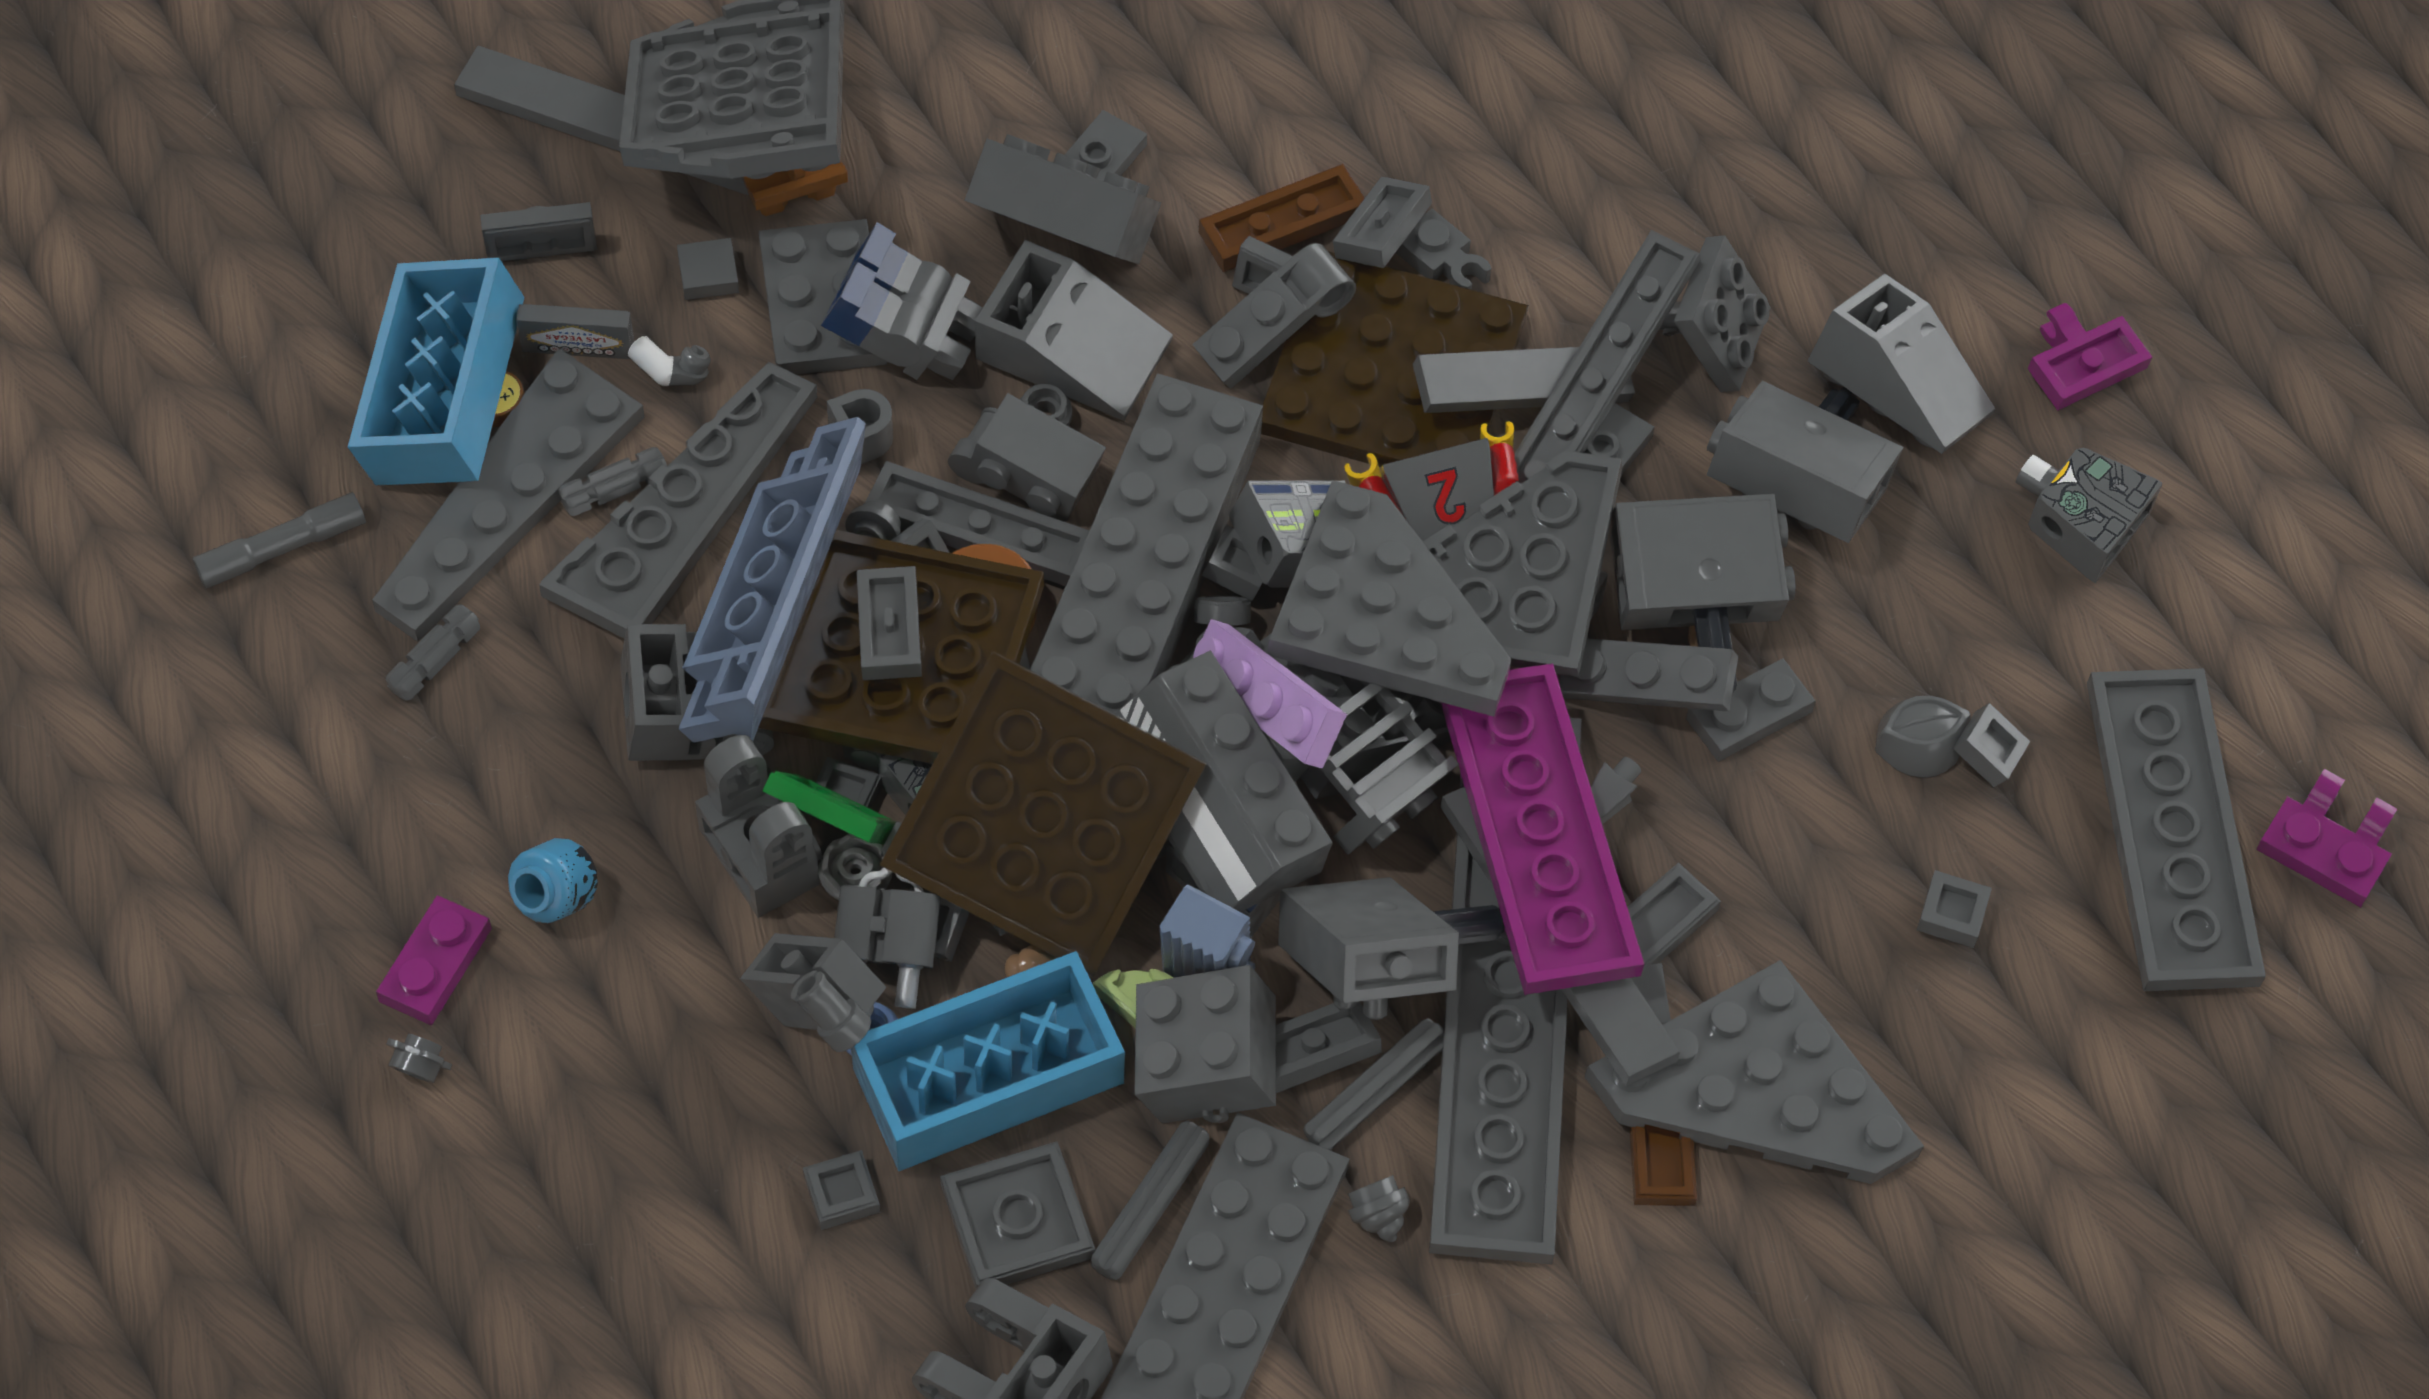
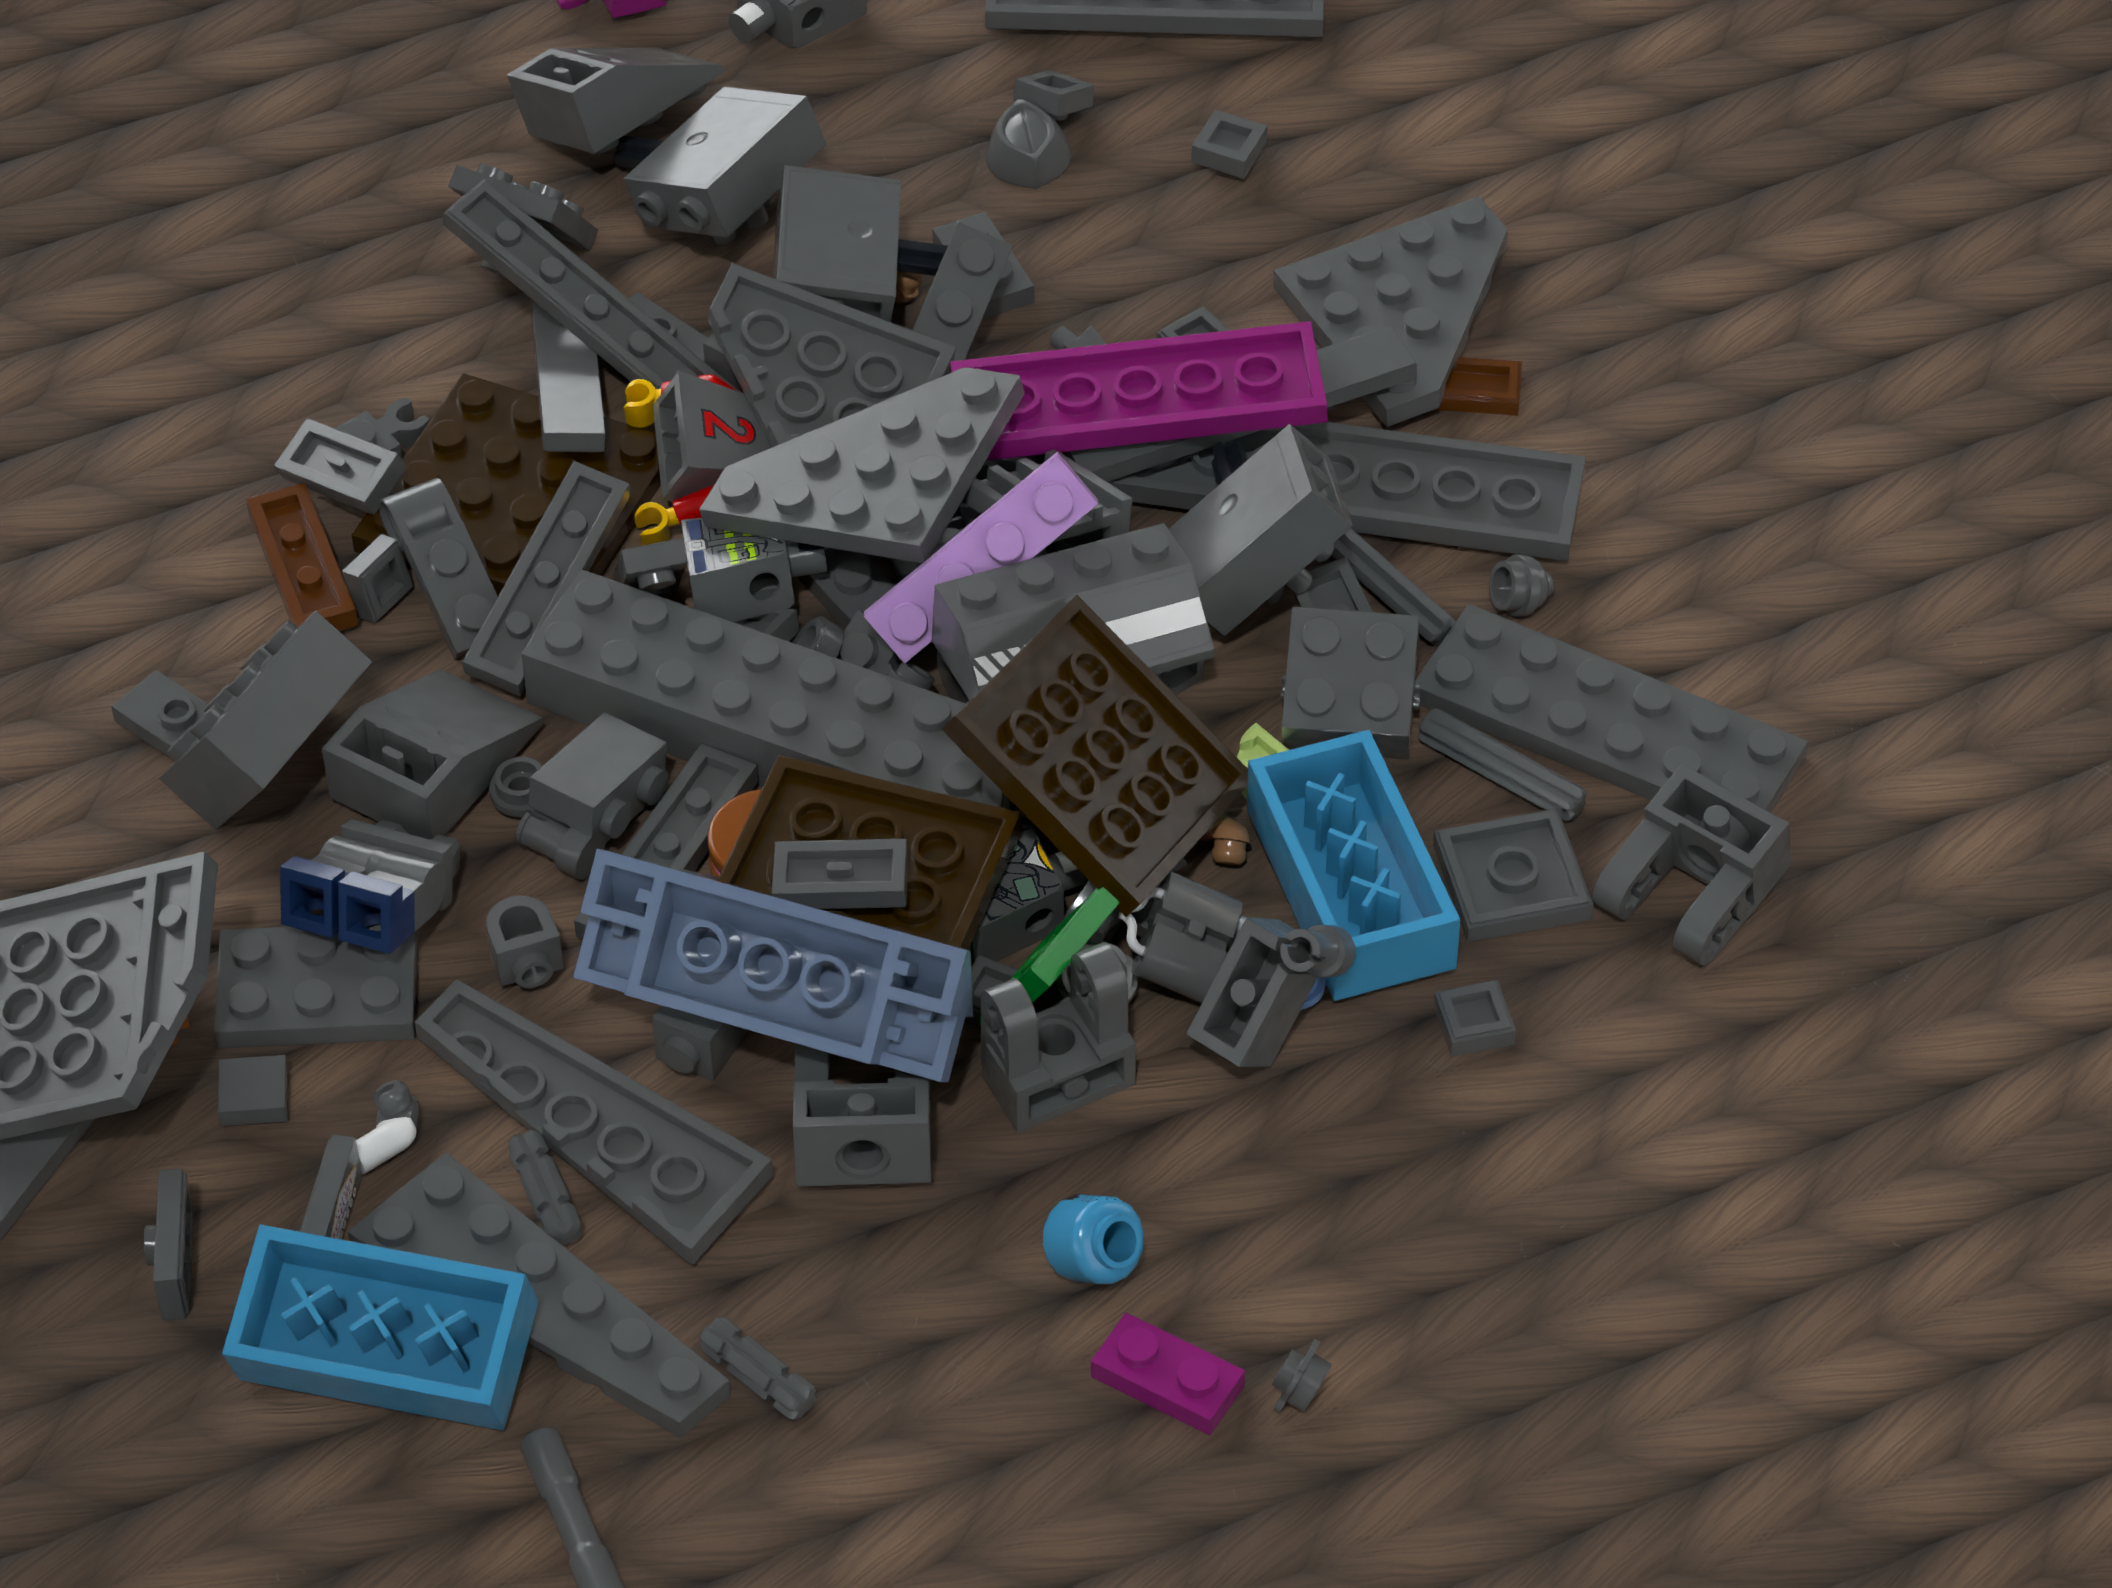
camera: 80 degrees left, 10 degrees down
(1203, 935) = (1239, 670): sand blue brick -> none
(1273, 456) = (653, 567): none -> dark grey plate
(1284, 388) = (559, 548): none -> dark grey plate

